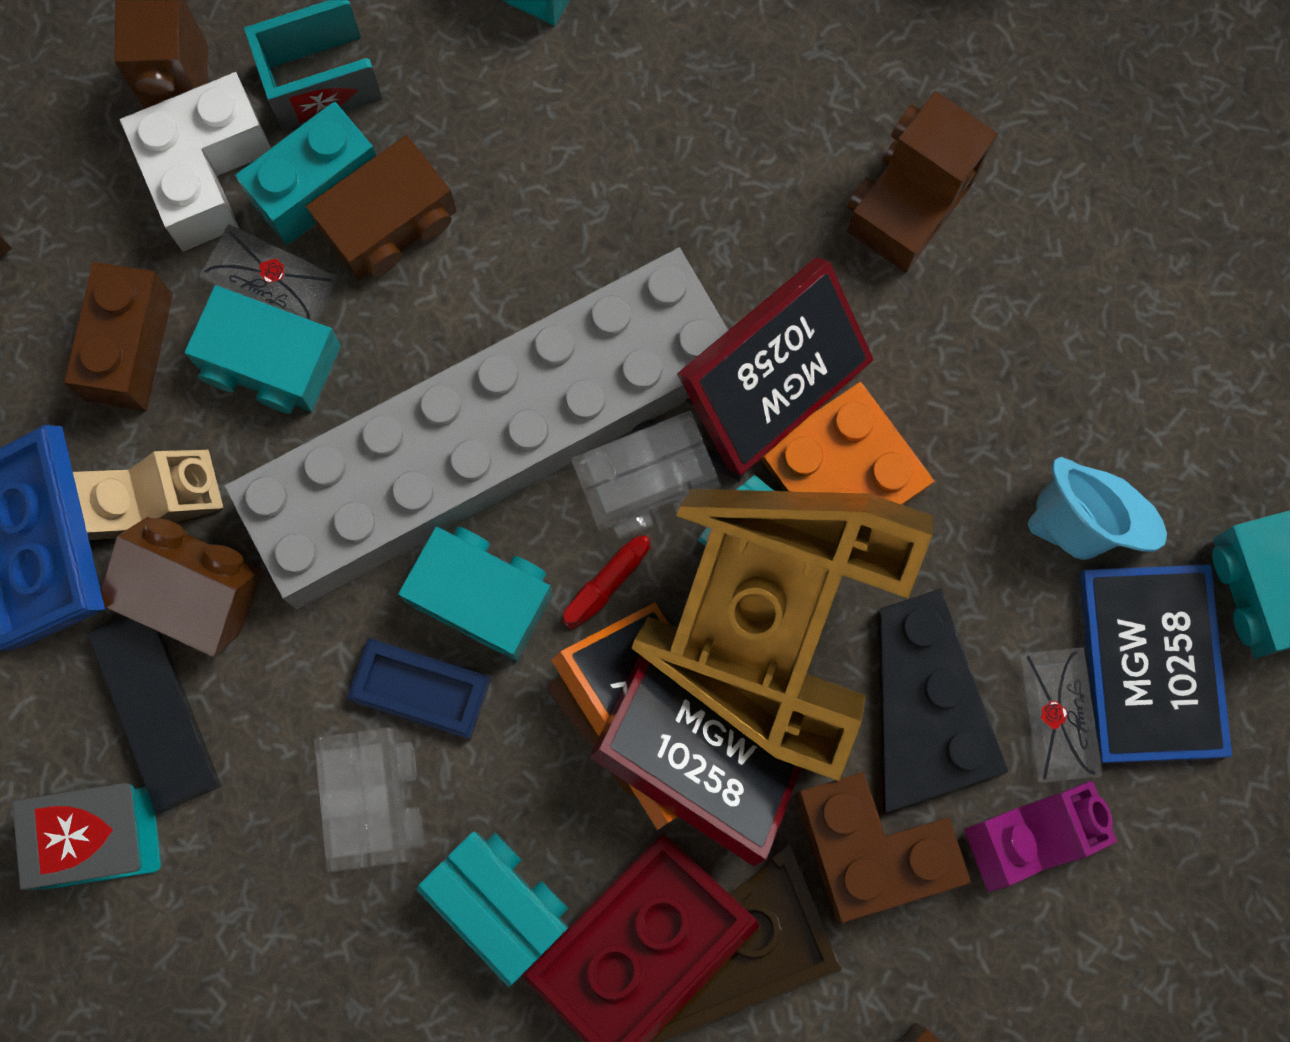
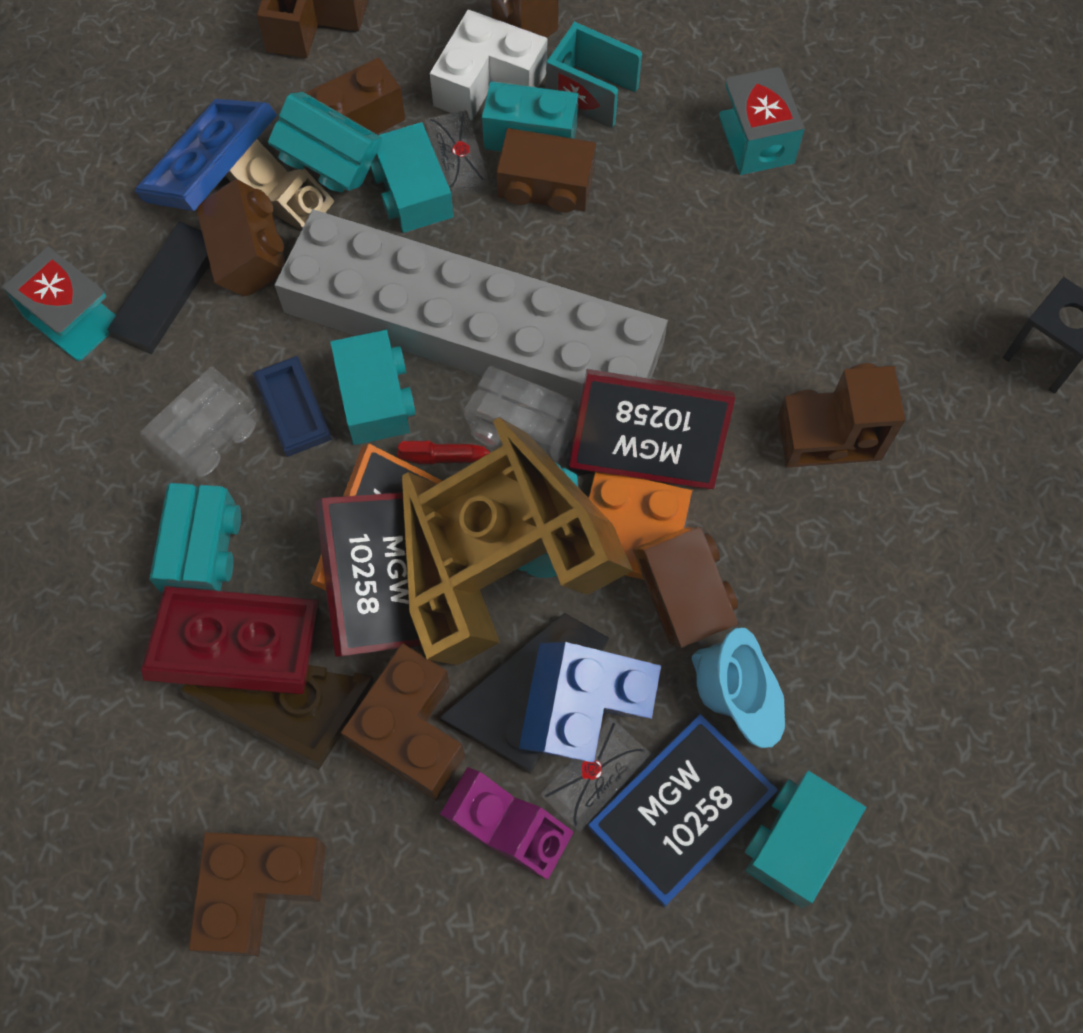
camera: 50 degrees right, 10 degrees down
(156, 407) = (324, 141): none -> teal brick
(961, 474) = (687, 585): none -> reddish brown brick
(985, 669) = (574, 689): none -> brick

